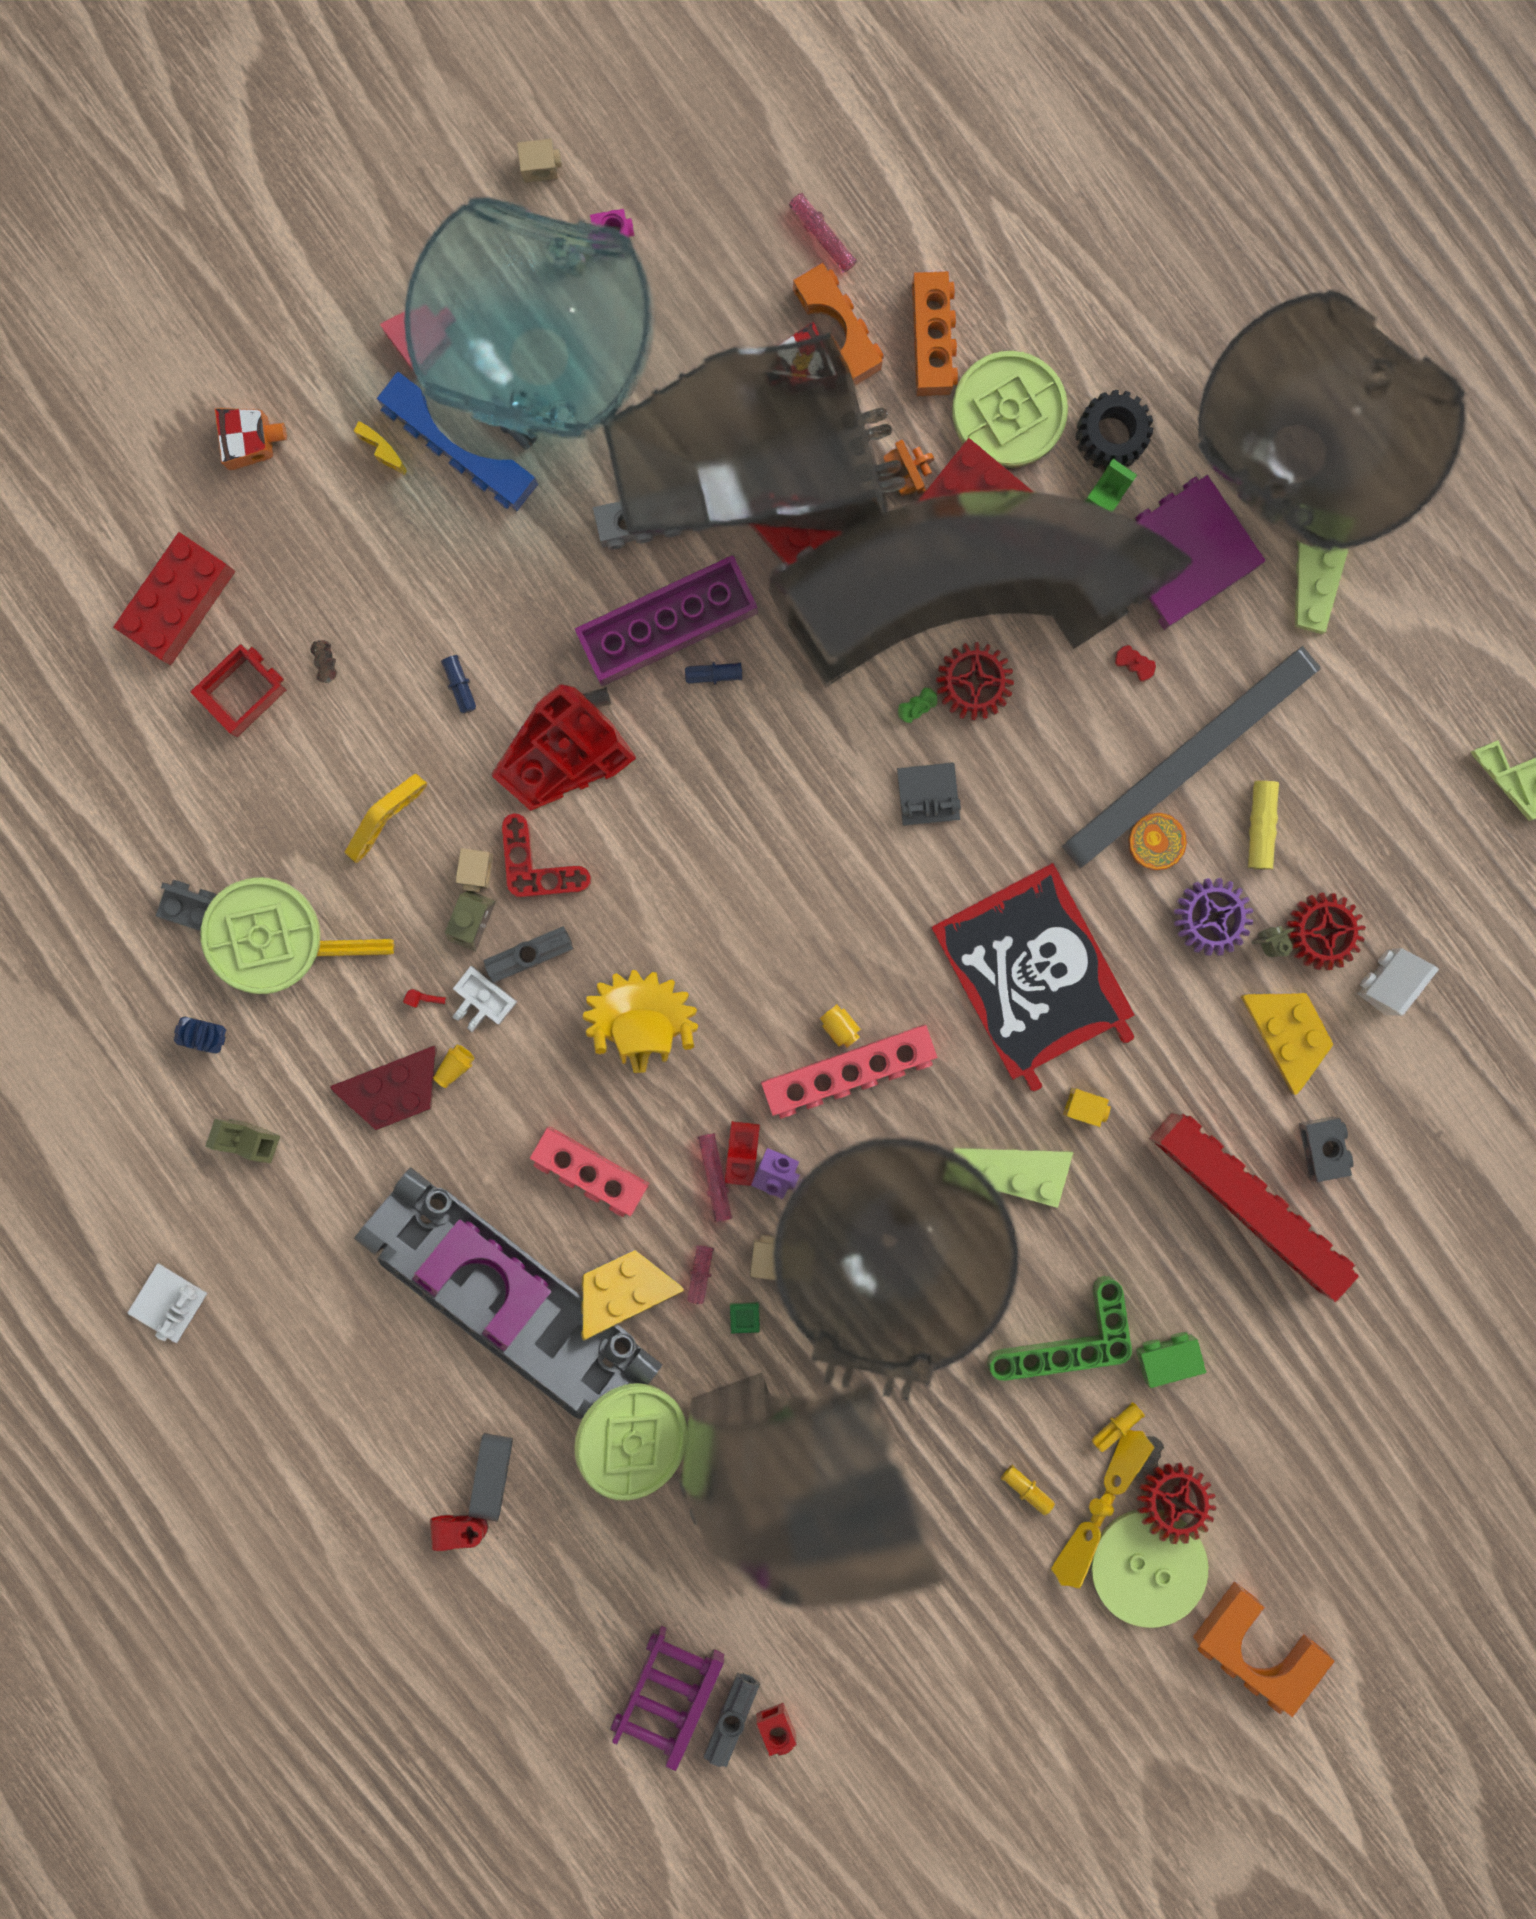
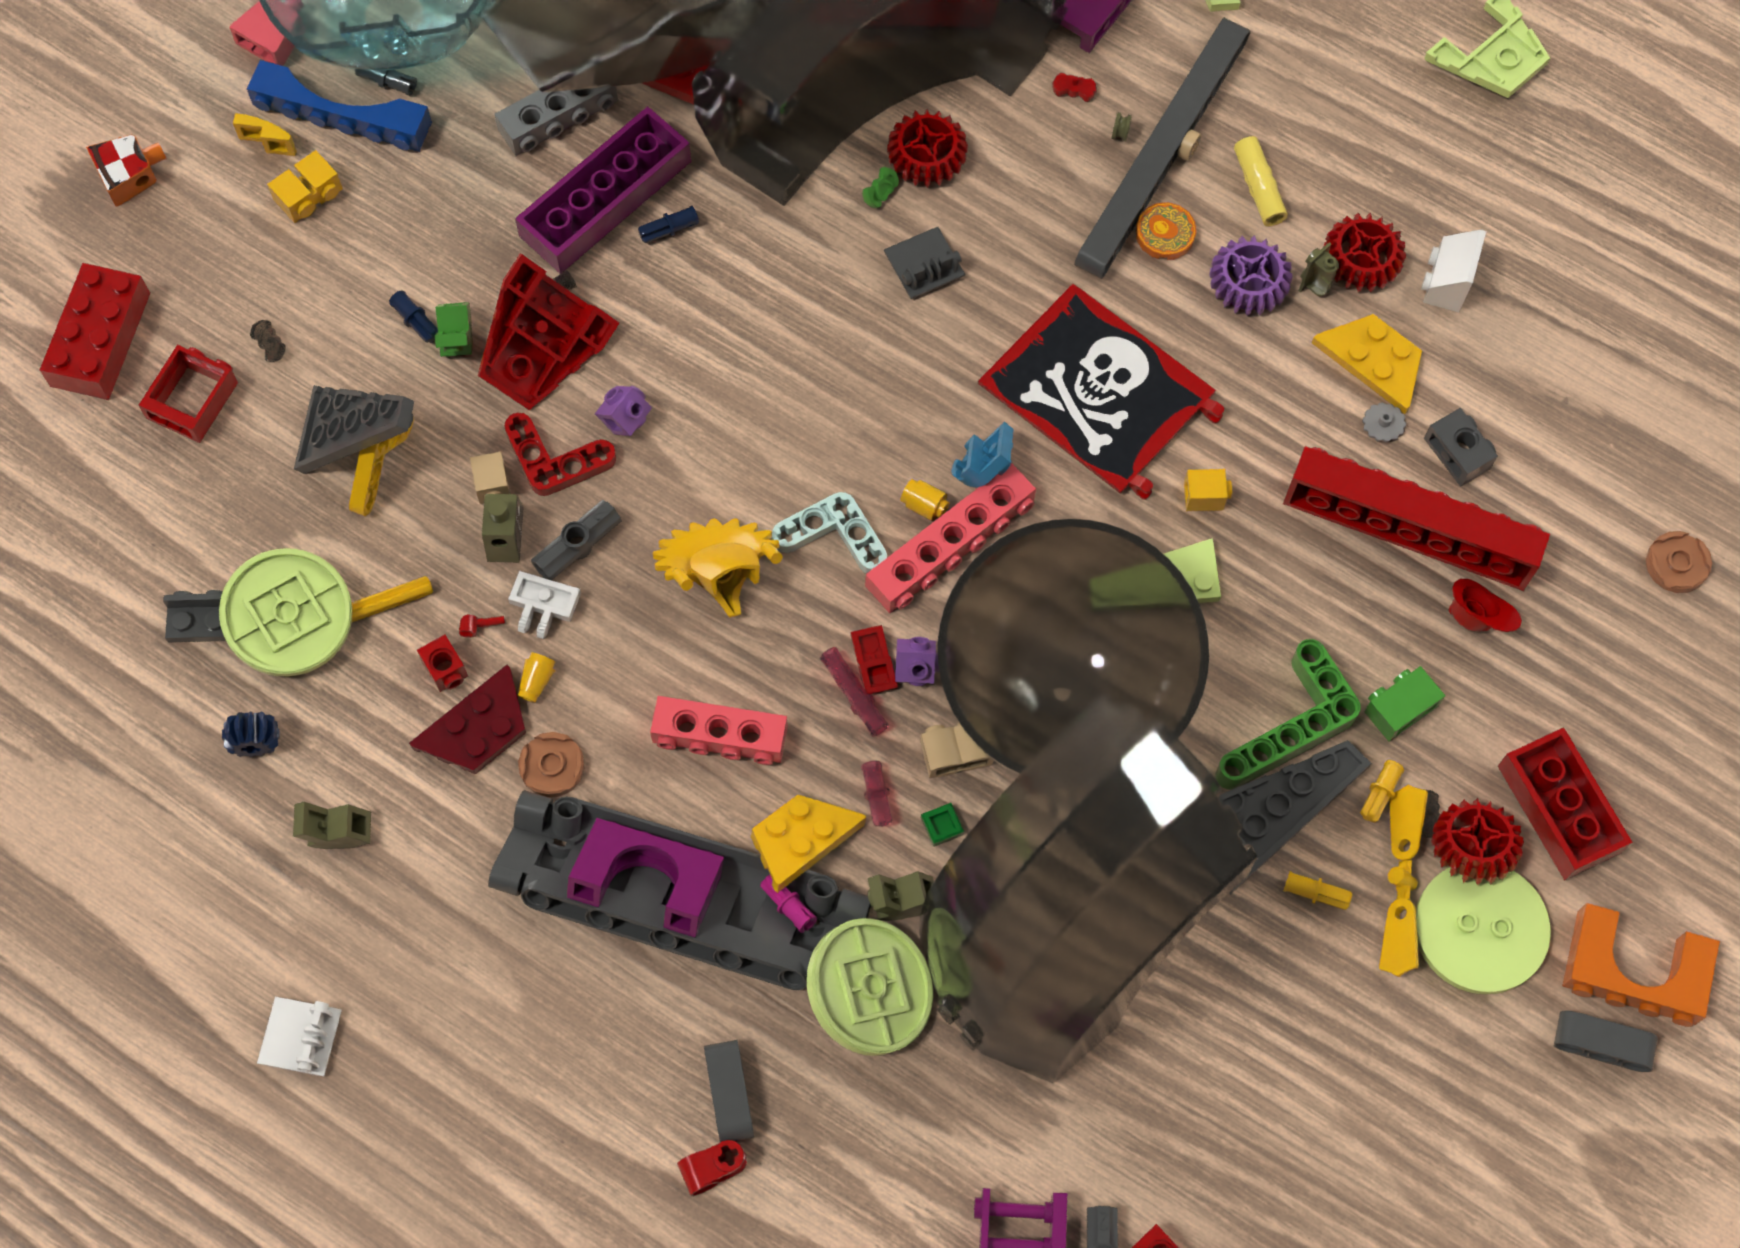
camera: 20 degrees left, 20 degrees down
(361, 788) = (348, 422): none -> dark grey wing
(370, 1018) = (440, 651): none -> red brick
(388, 523) = (300, 196): none -> yellow piece
(442, 1146) = (551, 764): none -> nougat tile
(488, 712) = (454, 329): none -> bright green brick
(592, 1350) = (790, 906): none -> dark pink axle
(610, 847) = (624, 410): none -> medium lavender brick
(687, 1372) = (899, 897): none -> olive brick
(753, 1013) = (832, 520): none -> light aqua beam
(905, 1011) = (985, 457): none -> dark azure slope
(999, 1414) = (1286, 801): none -> dark grey wing
(1160, 723) = (1121, 126): none -> olive bush
(1205, 1698) = (1605, 1041): none -> dark grey beam
(1214, 765) = (1189, 145): none -> tan tile
(1263, 1499) = (1564, 803): none -> red brick
(1270, 1097) = (1384, 422): none -> light grey piece
(1275, 1305) = (1480, 609): none -> red piece
(1464, 1319) = (1678, 562): none -> nougat tile

